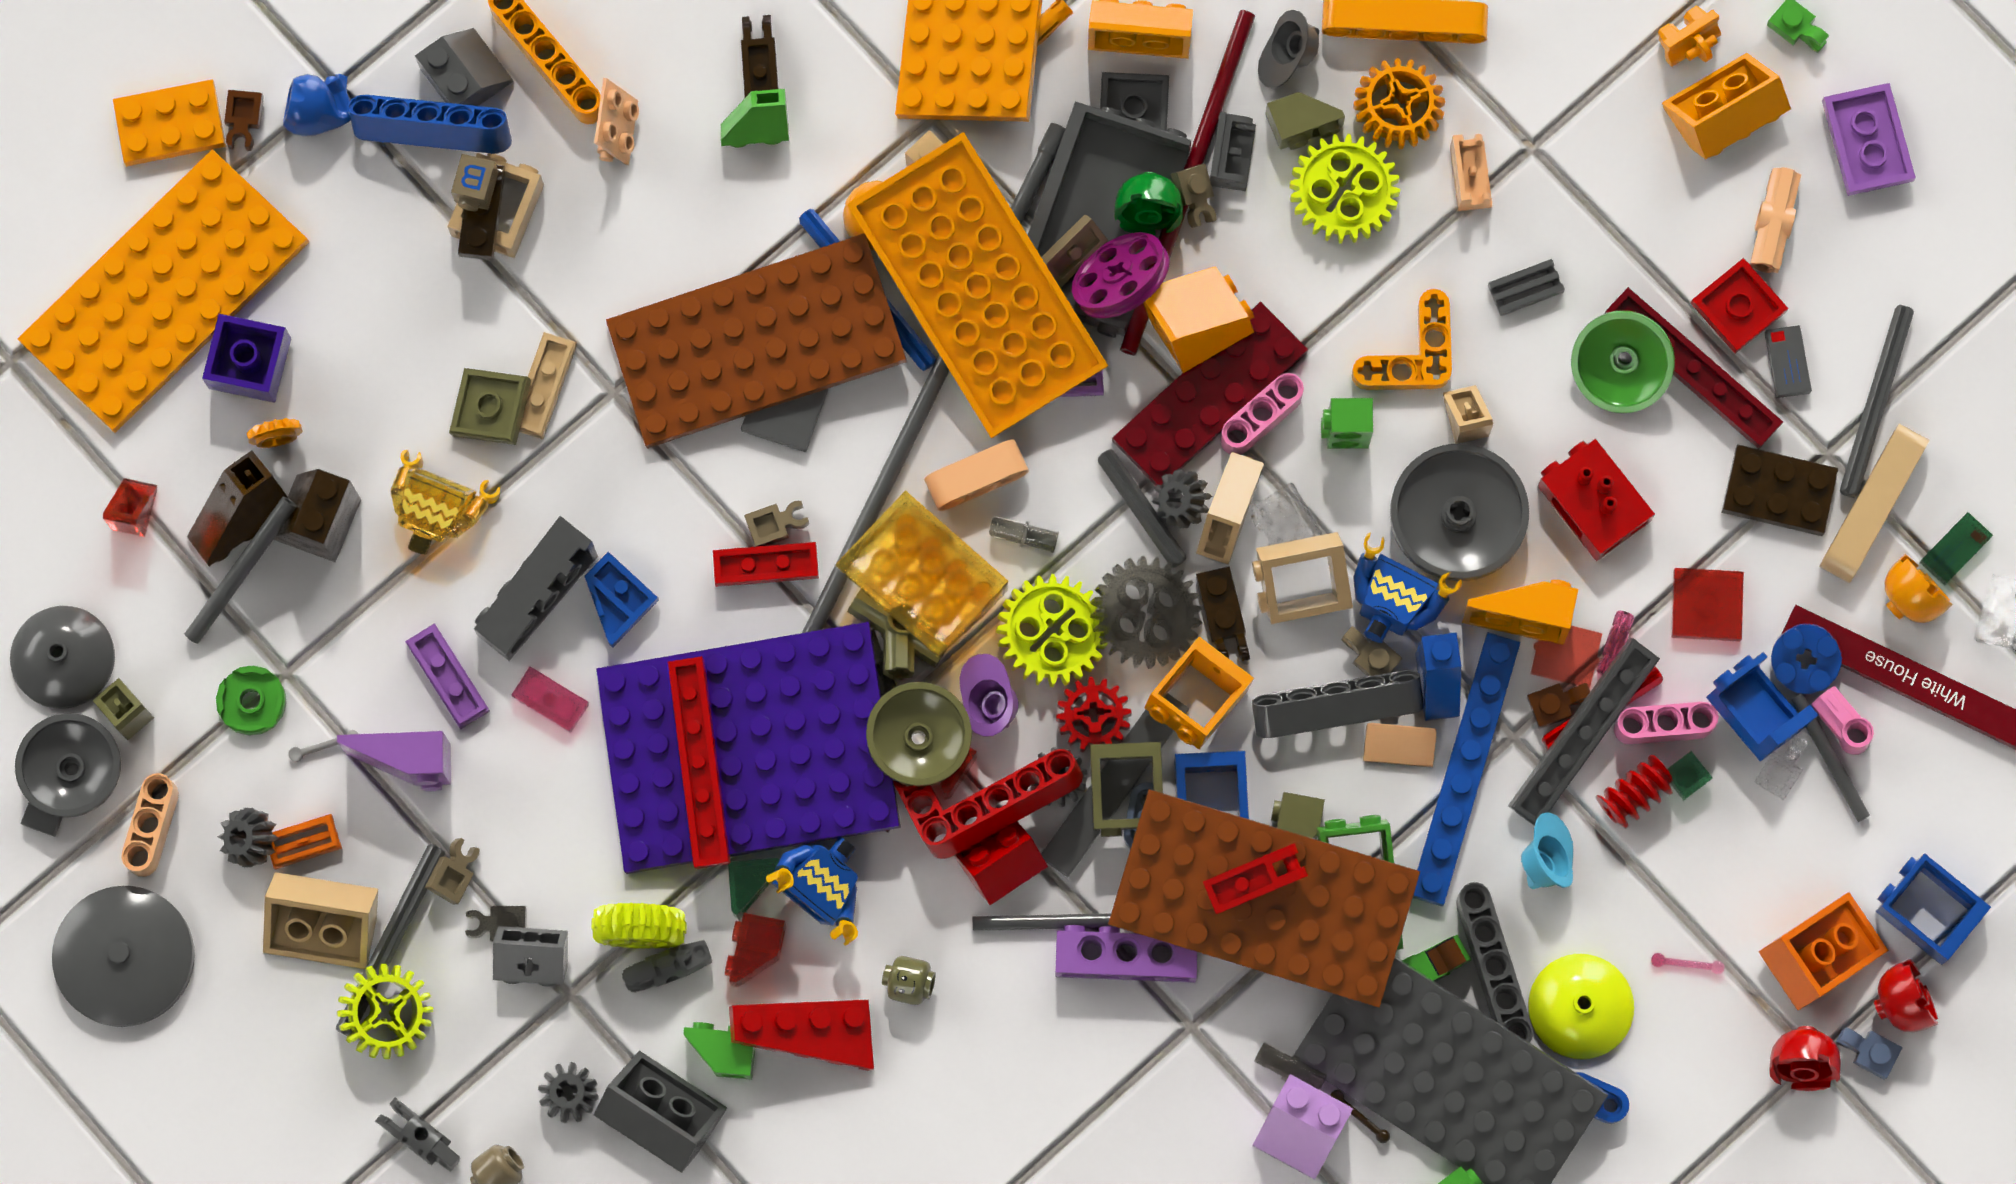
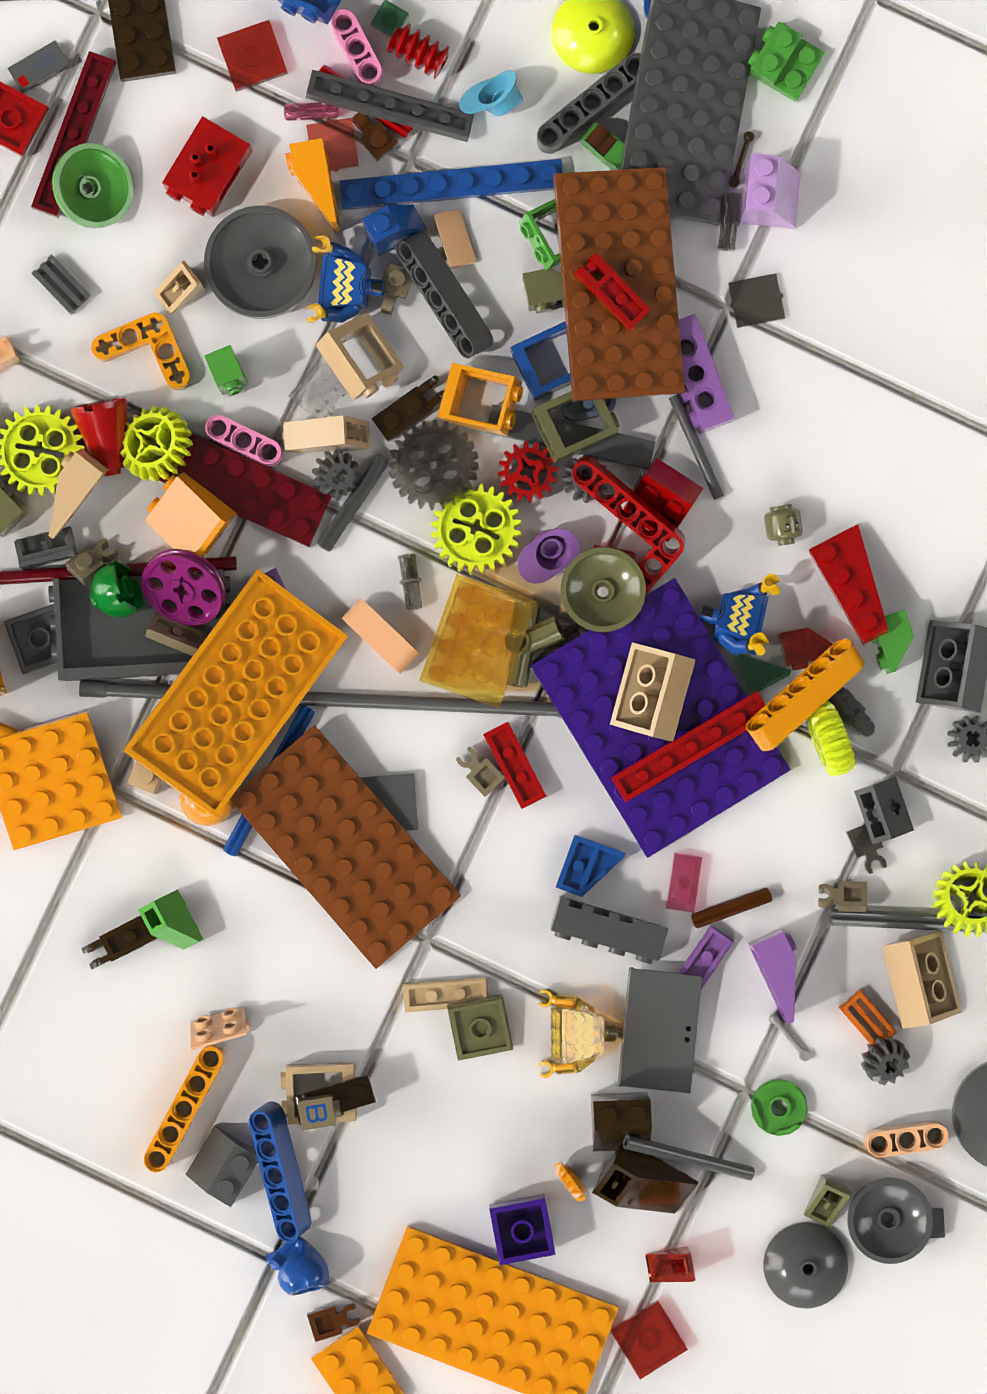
camera: 115 degrees left, 10 degrees up
(62, 450) = (648, 1339): none -> clear red tile
(408, 603) = (657, 1021): none -> dark grey container
(497, 740) = (731, 908): none -> reddish brown axle
(700, 913) = (805, 694): none -> light orange beam
(778, 742) = (652, 692): none -> tan slope
(1185, 1064) = (756, 300): none -> clear smoke piece
(1286, 203) = (74, 485): none -> tan slope
(1298, 330) = (162, 428): none -> neon yellow gear
(1335, 263) = (103, 430): none -> red cone

